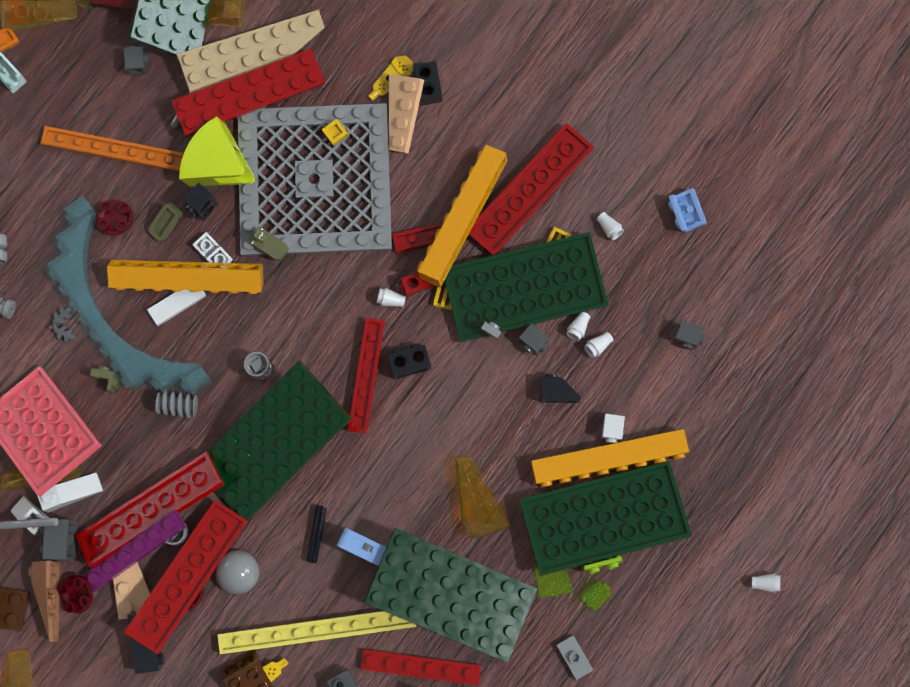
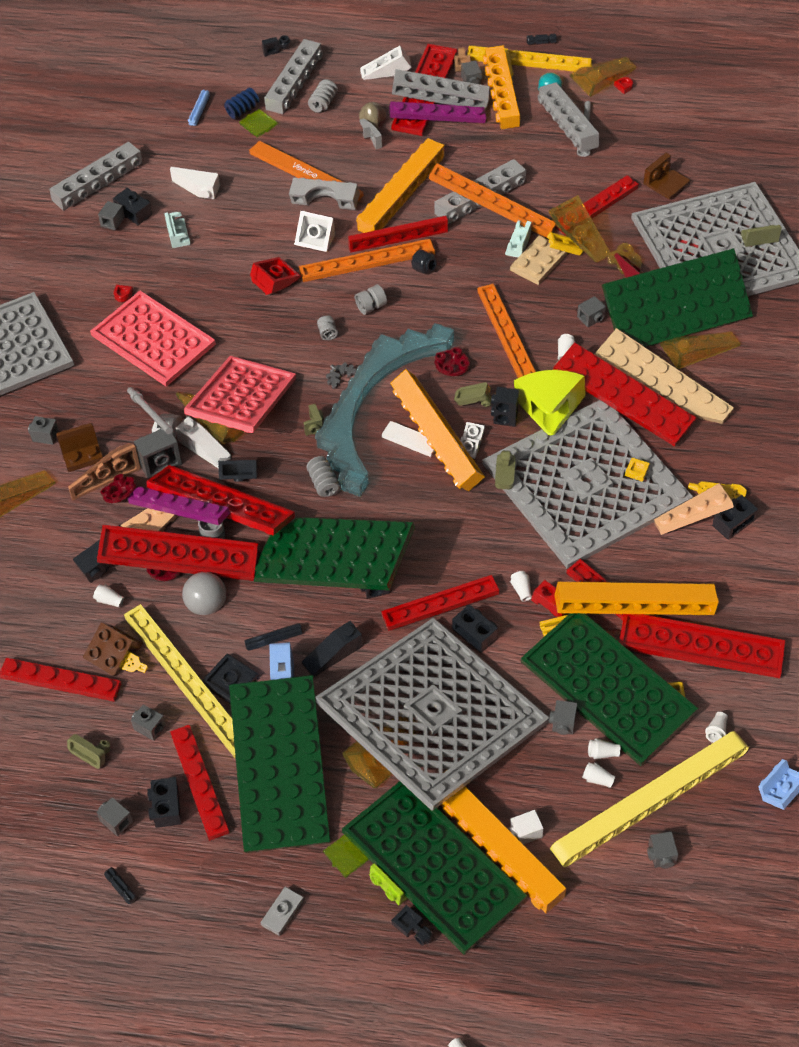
camera: 60 degrees right, 25 degrees down
(41, 68) = (537, 261): none -> tan plate
(42, 37) = (563, 243): none -> yellow tile
(121, 475) = (238, 468): none -> black brick
(161, 108) = (564, 344): none -> white cone
(190, 658) = (106, 595): none -> white cone
(258, 366) = (394, 511): light grey wheel -> none
(336, 592) = (228, 672): none -> black tile
(360, 492) = (333, 649): none -> black slope
(491, 329) = (547, 672): light grey plate -> none
(499, 502) = (432, 787): none -> light grey plate
(557, 390) = (528, 761): black slope -> none
(597, 595) = (354, 899): clear neon green bracket -> none
(639, 564) = (408, 922): none -> black plate
(640, 317) = (648, 799): none -> light yellow beam

